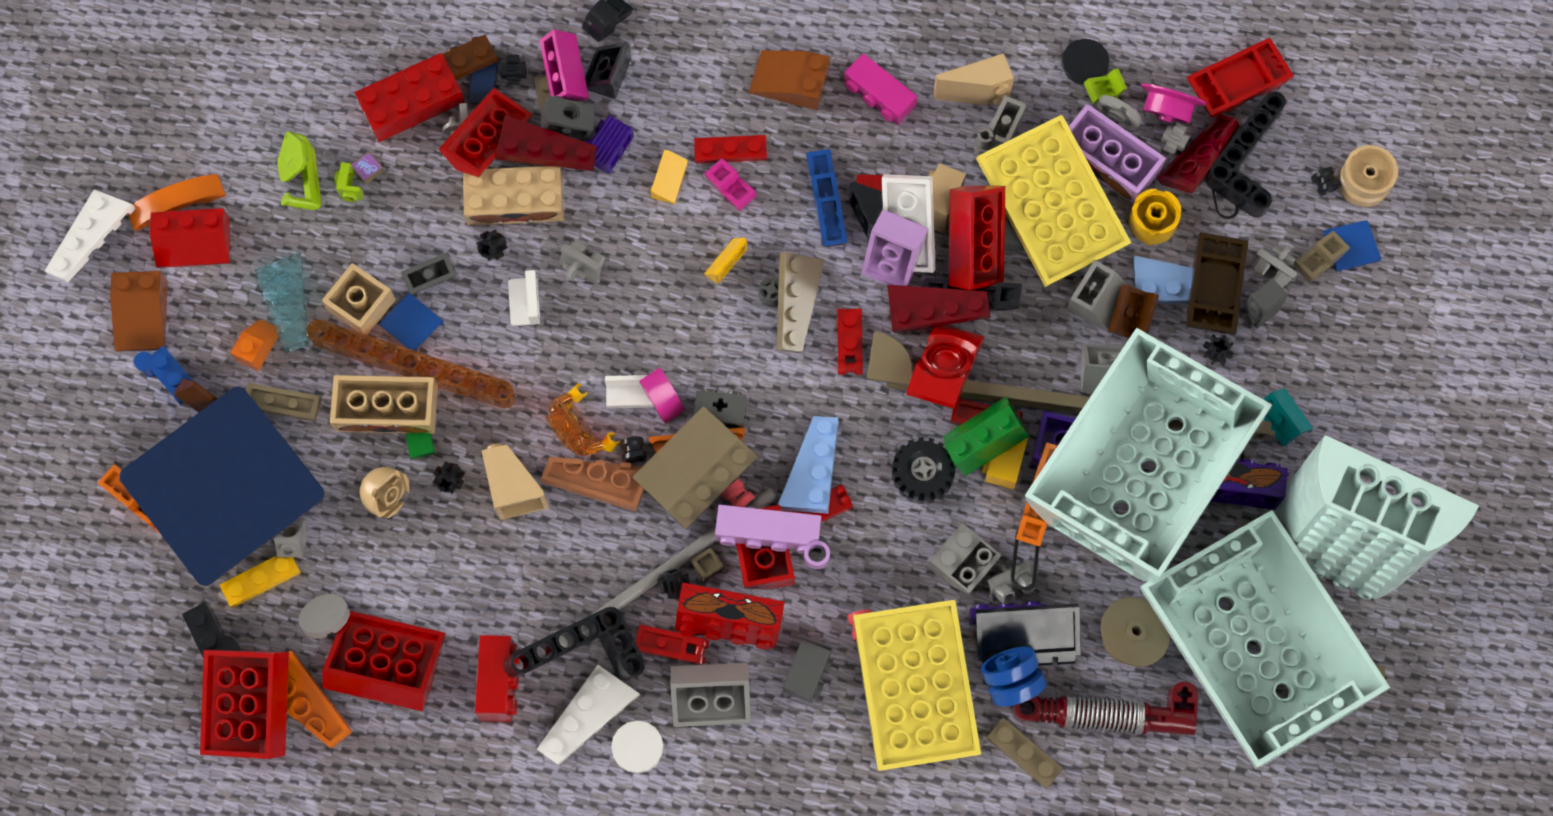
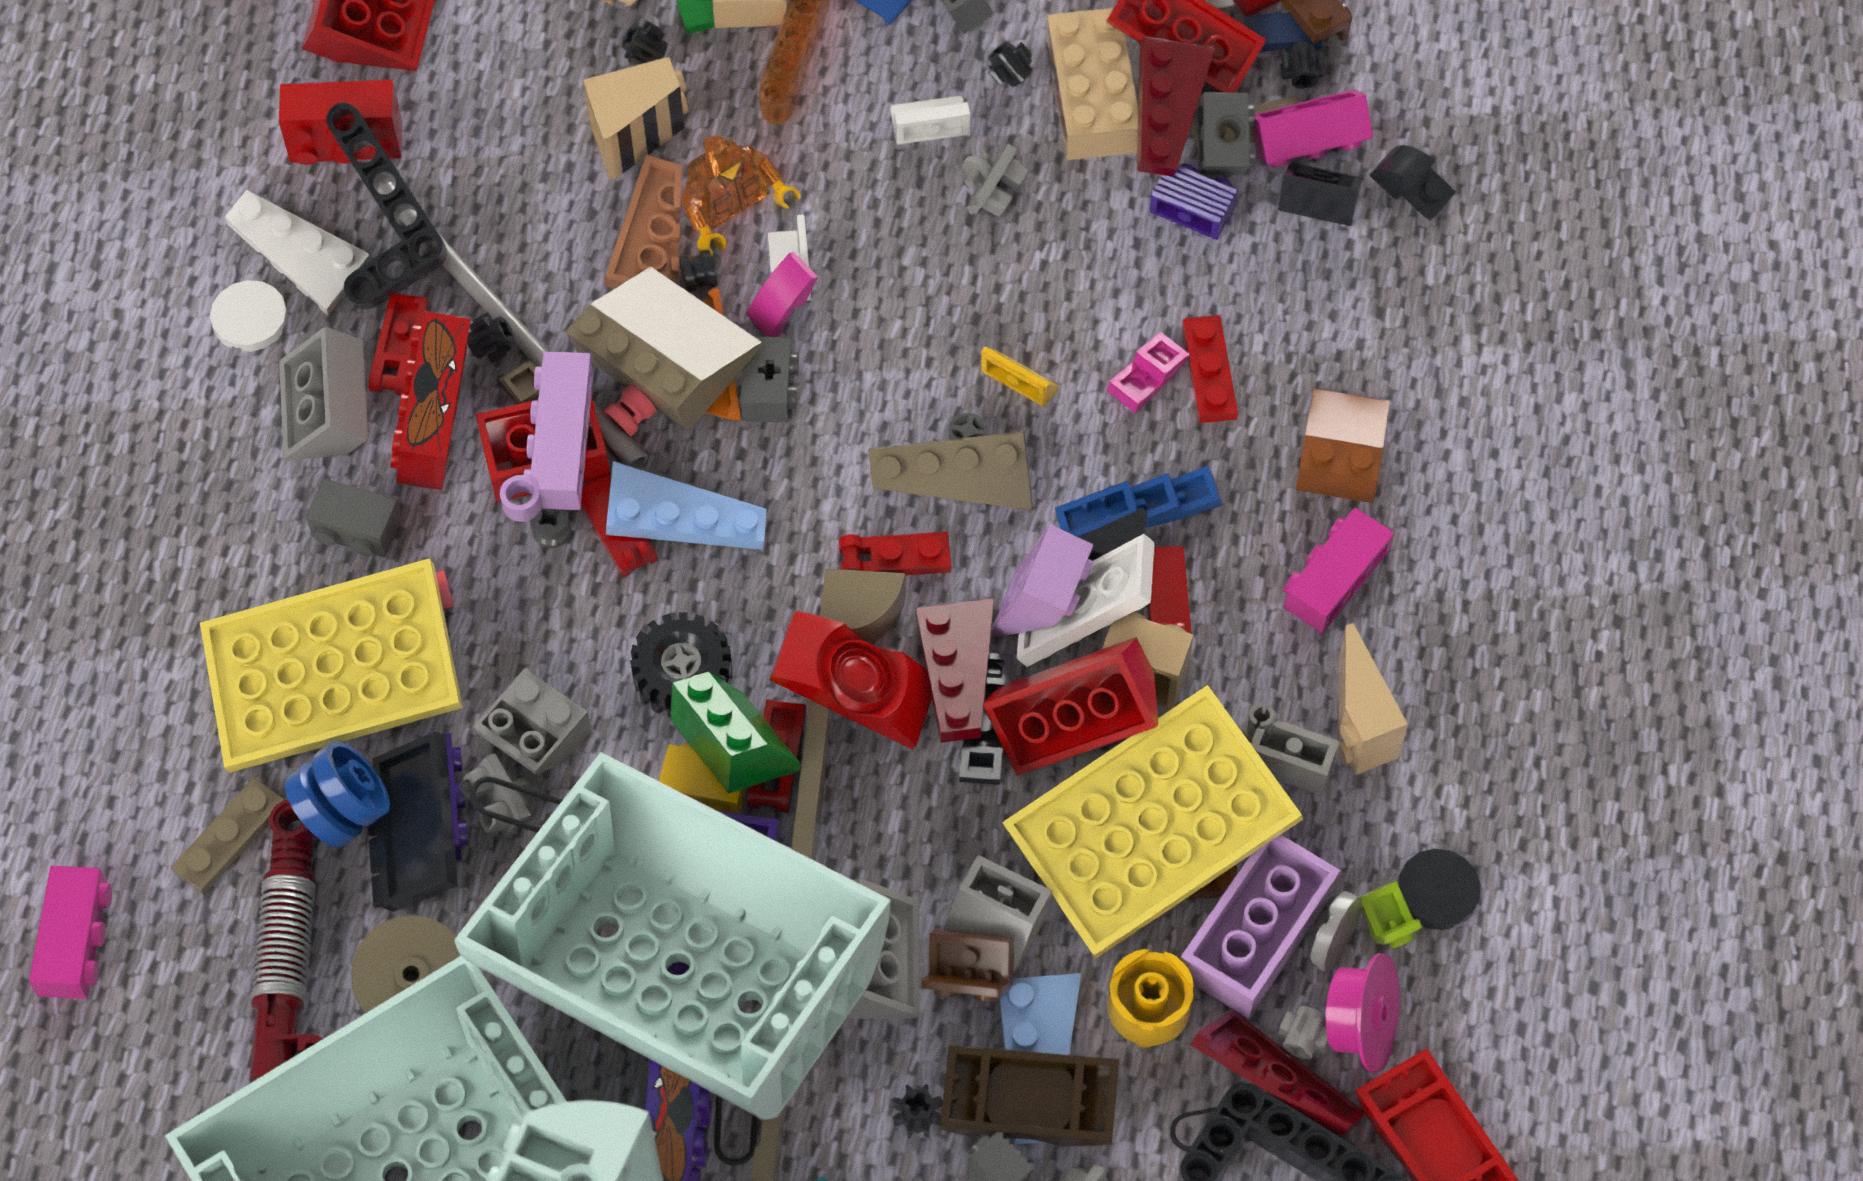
camera: 85 degrees right, 10 degrees down
(669, 177) = (1150, 286): yellow slope -> none

